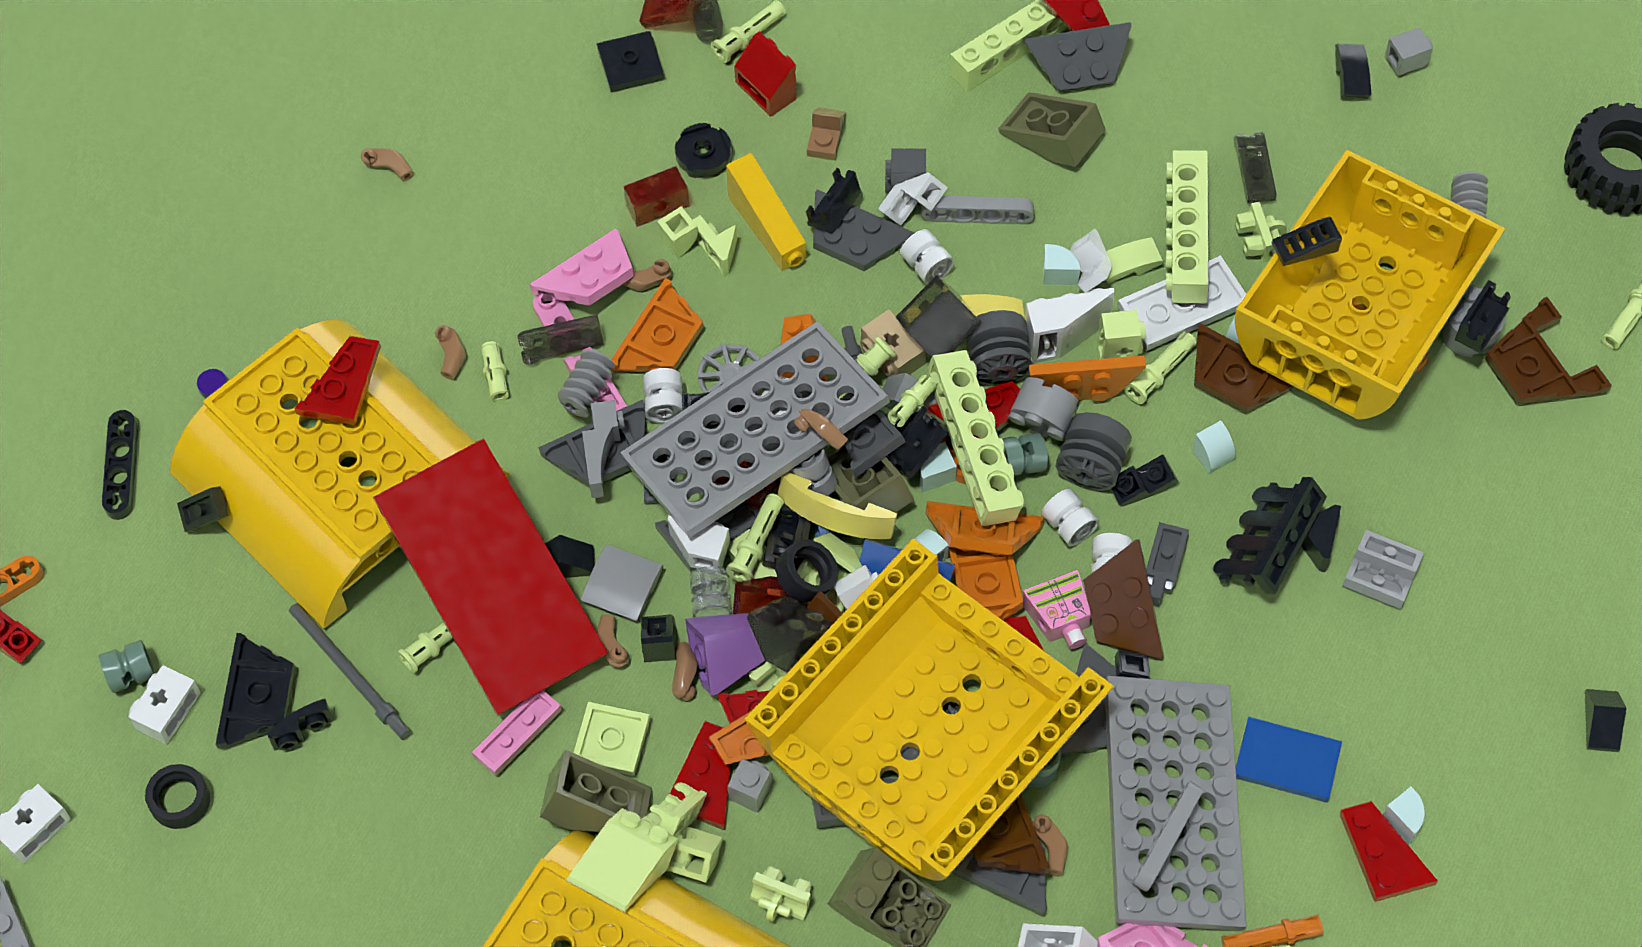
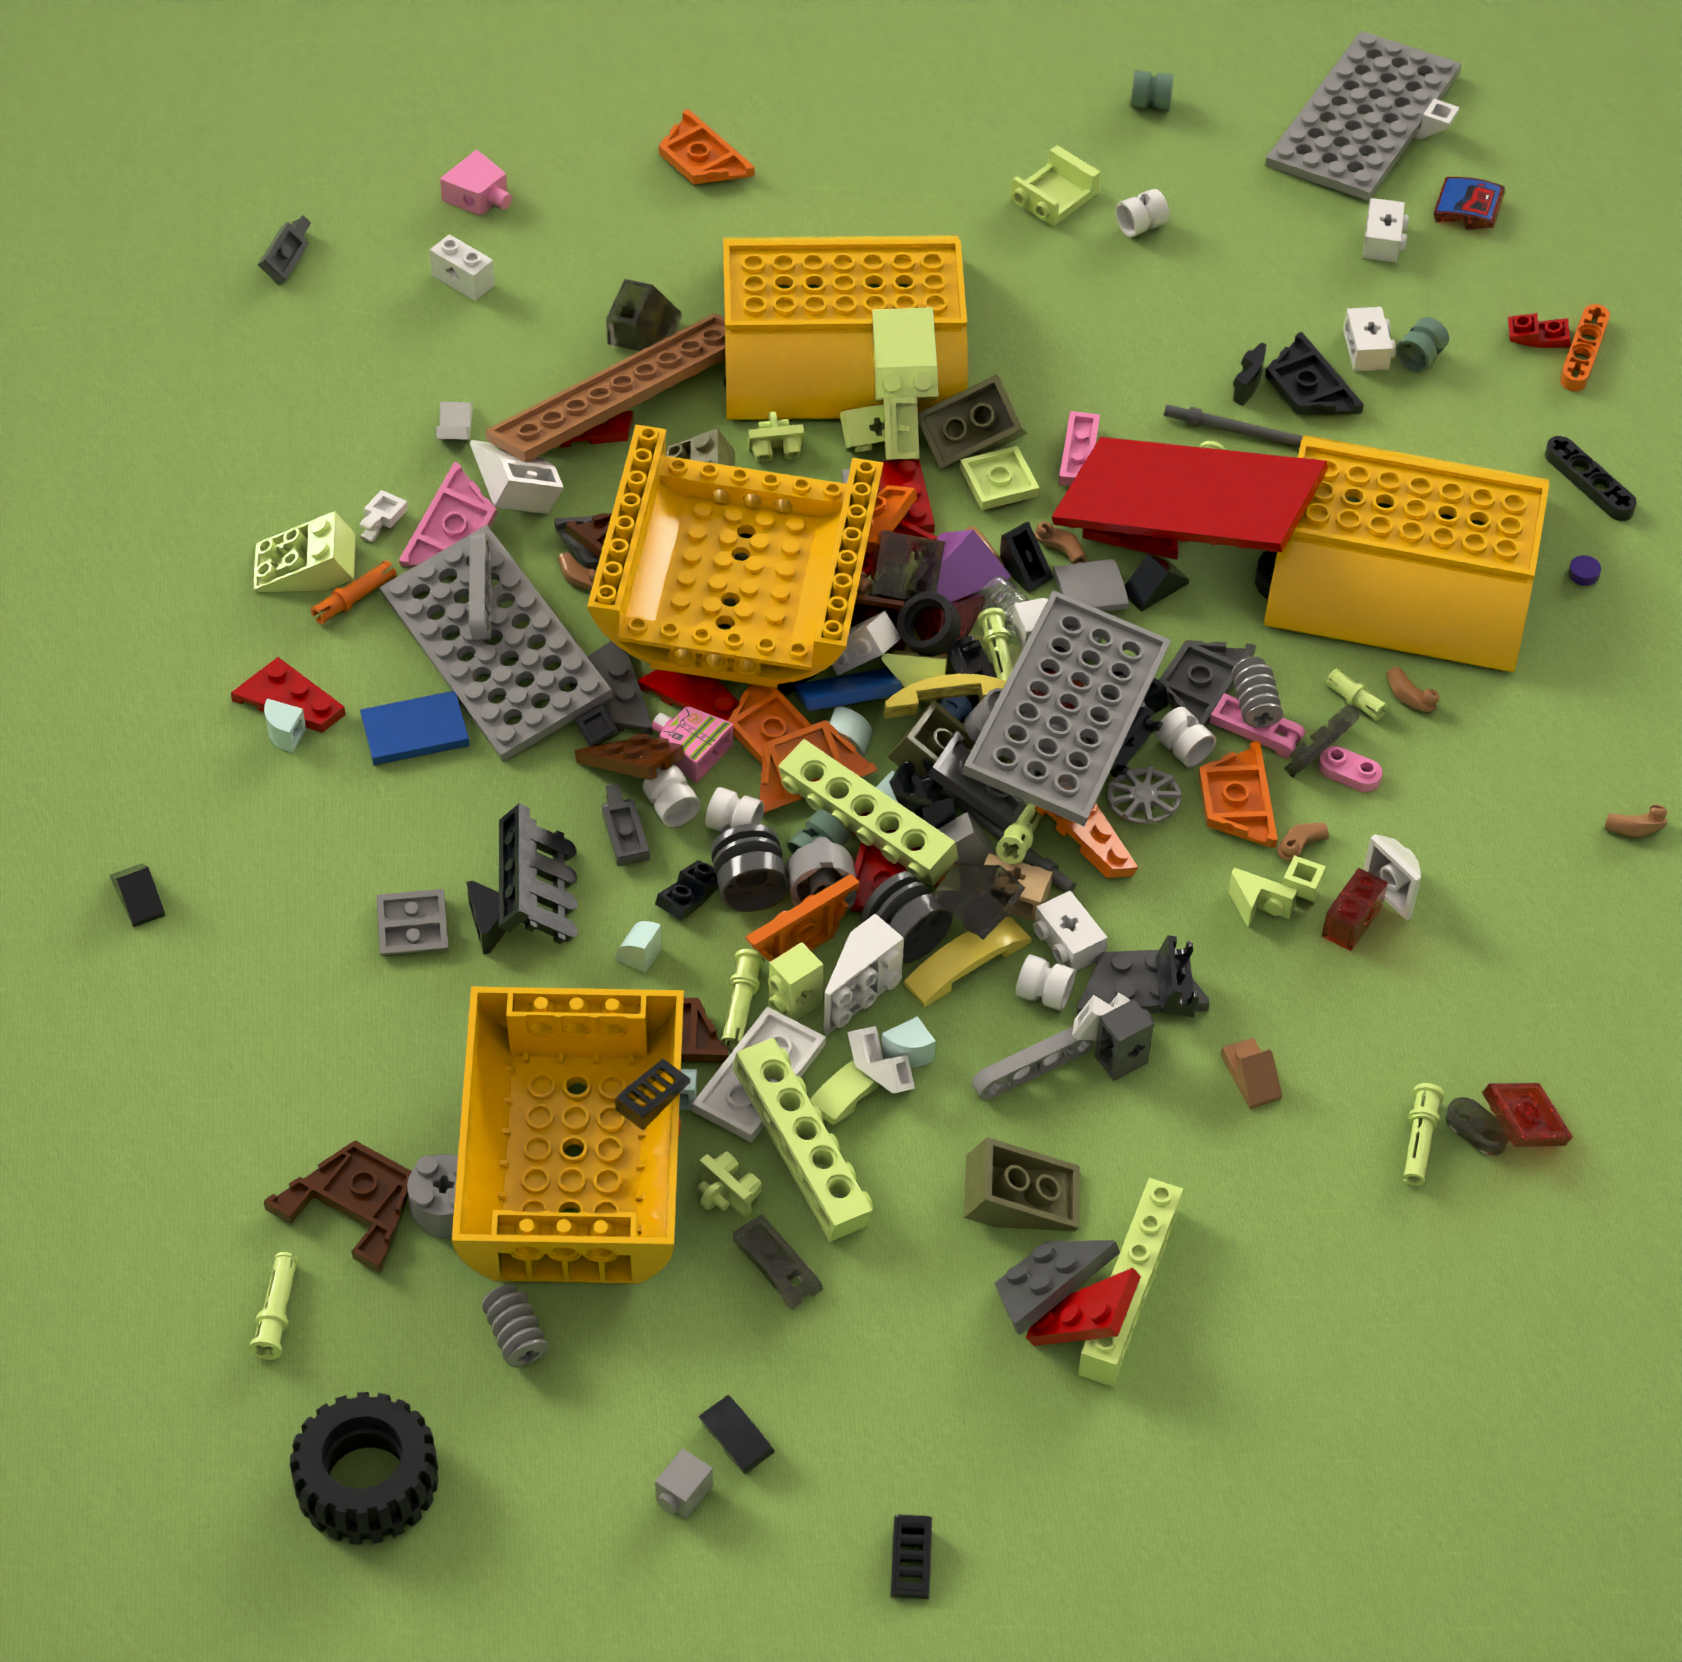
camera: 145 degrees right, 10 degrees down
(161, 780) = (1297, 279): black tyre -> none
(202, 509) = (1477, 456): pearl dark grey plate -> none
(344, 384) = (1444, 541): red wing -> none
(589, 272) = (1349, 805): bright pink wing -> none
(599, 442) = (1209, 672): light grey slope -> none
(601, 202) = (1398, 867): none -> white slope
(630, 61) = (1510, 1043): black plate -> none
(703, 164) = (1349, 1001): black plate -> none
(764, 212) = (1237, 940): yellow slope -> none
(766, 74) = (1353, 1082): red slope -> none
(822, 426) = (1002, 702): medium nougat arm -> none
(877, 287) = (1069, 931): none -> white brick
(911, 401) = (947, 805): yellowish green pin -> none
(1483, 318) = (430, 1158): black hinge -> none

